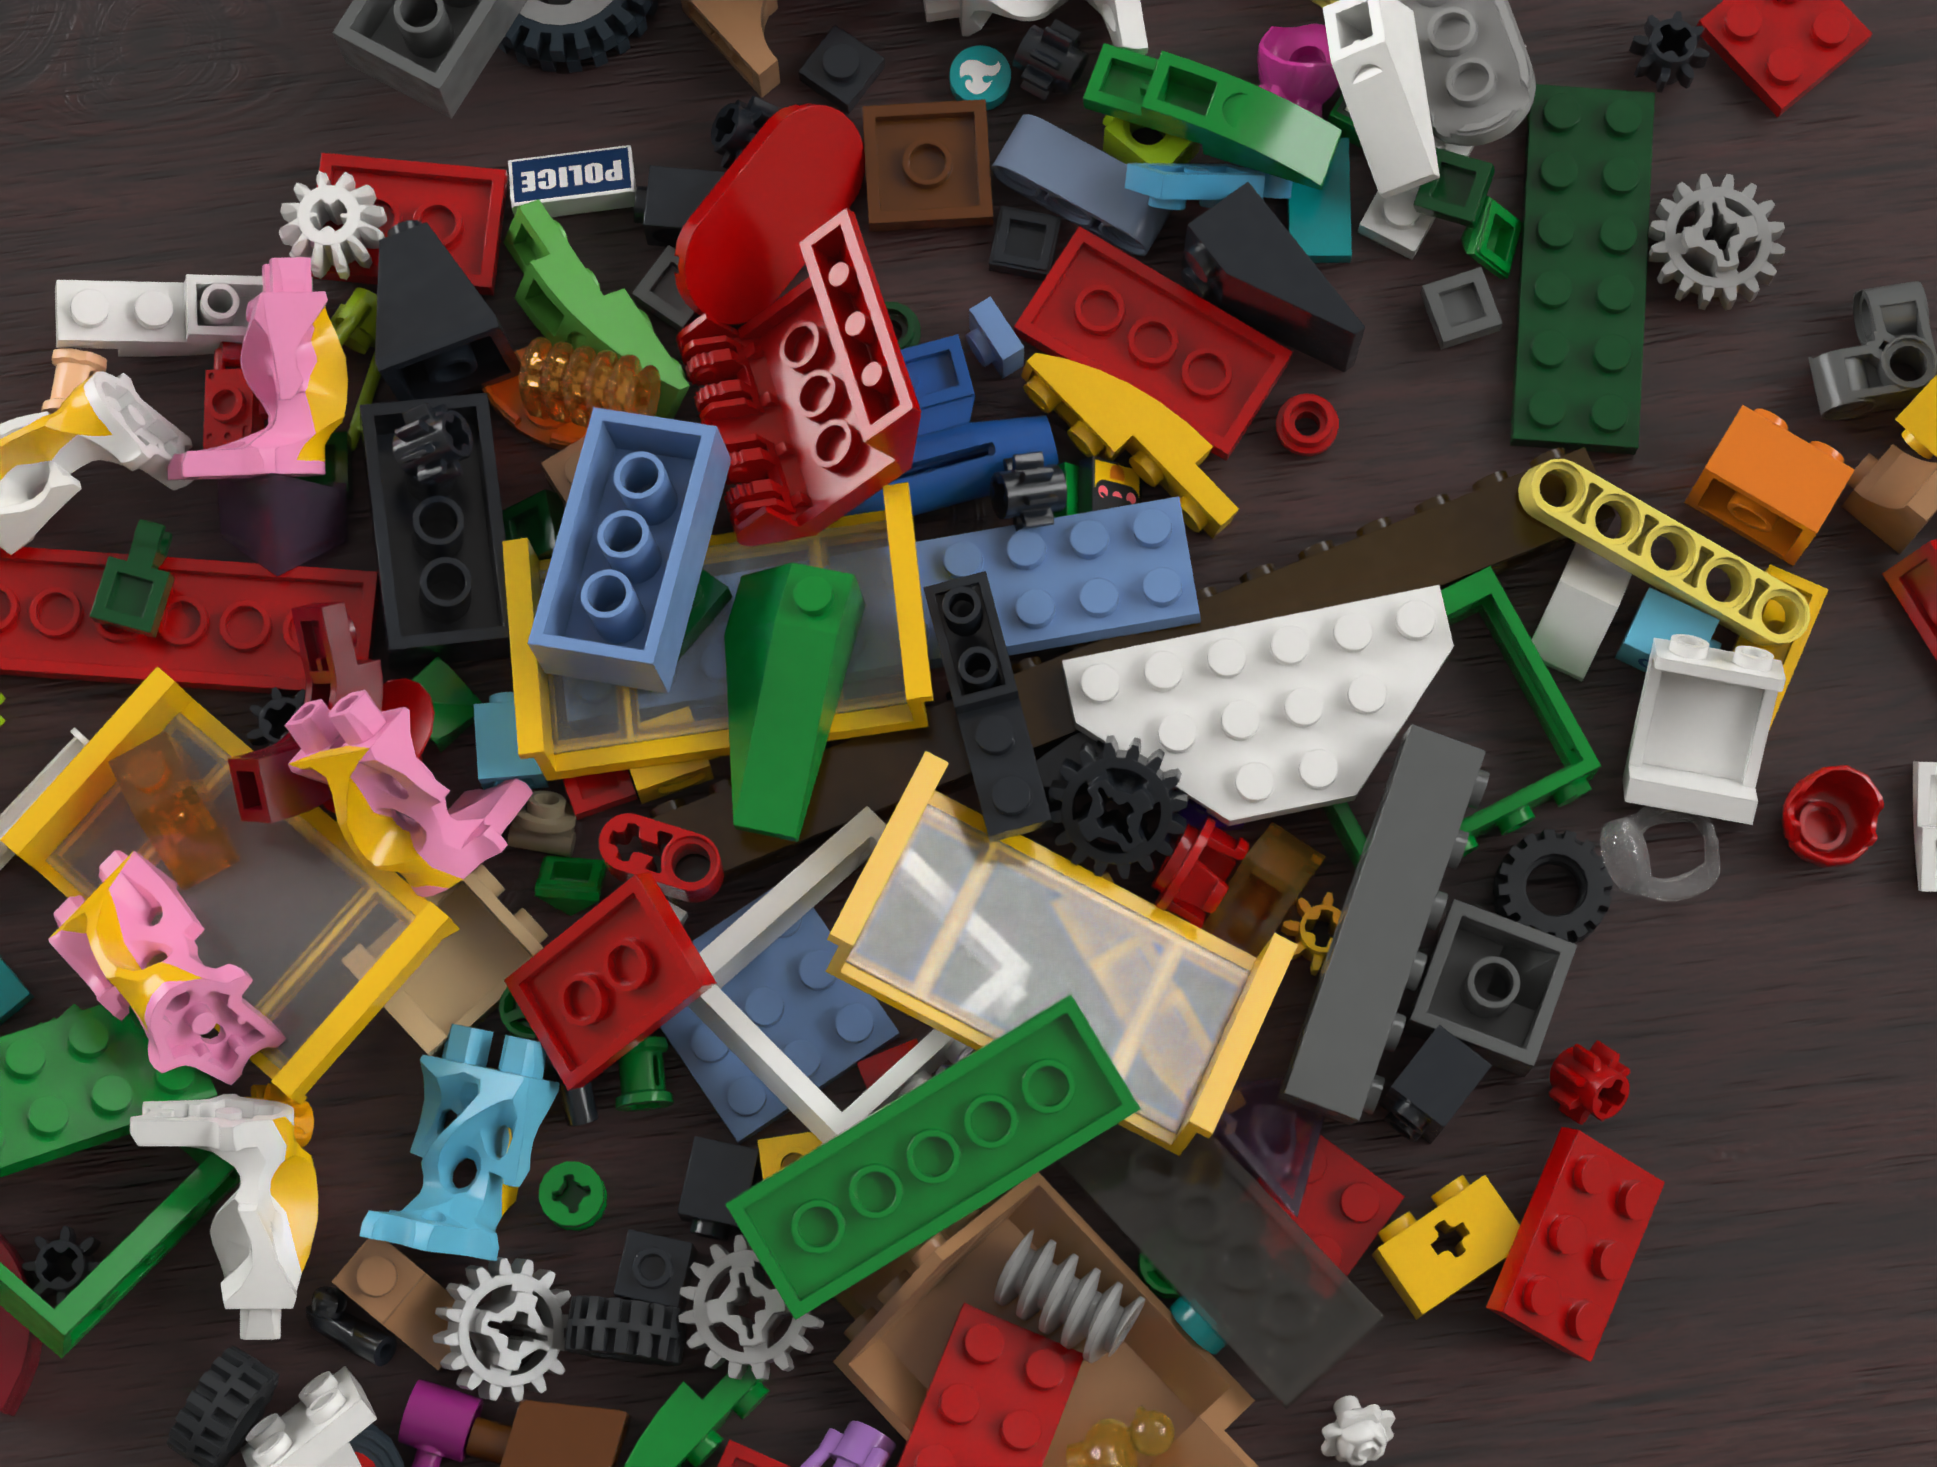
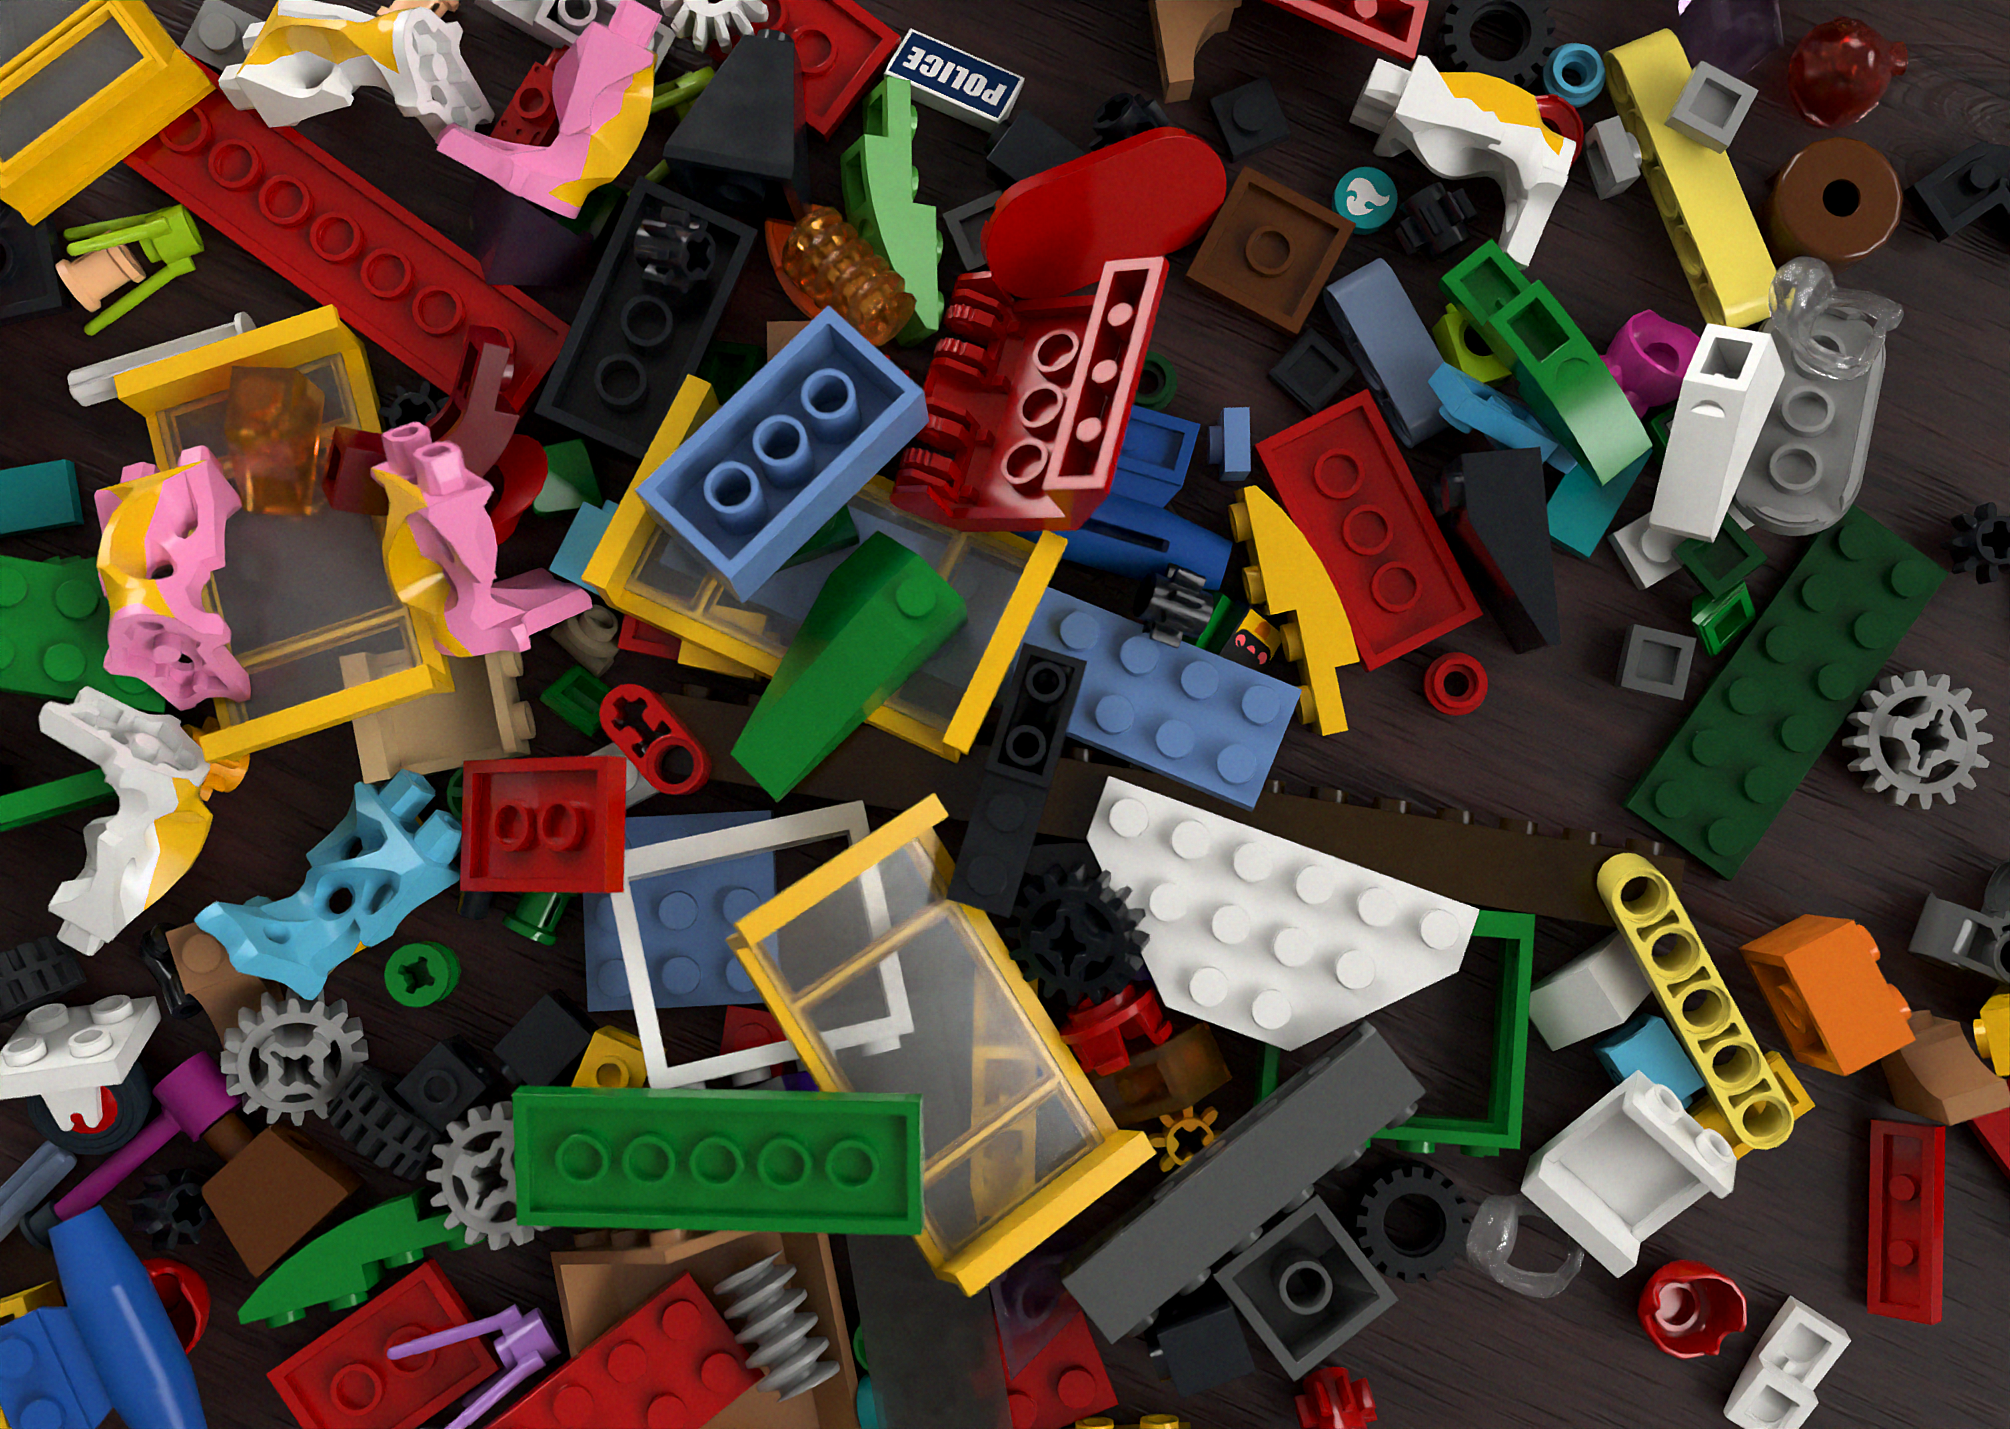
camera: 30 degrees right, 10 degrees up
(134, 590) = (353, 222): dark green plate -> none

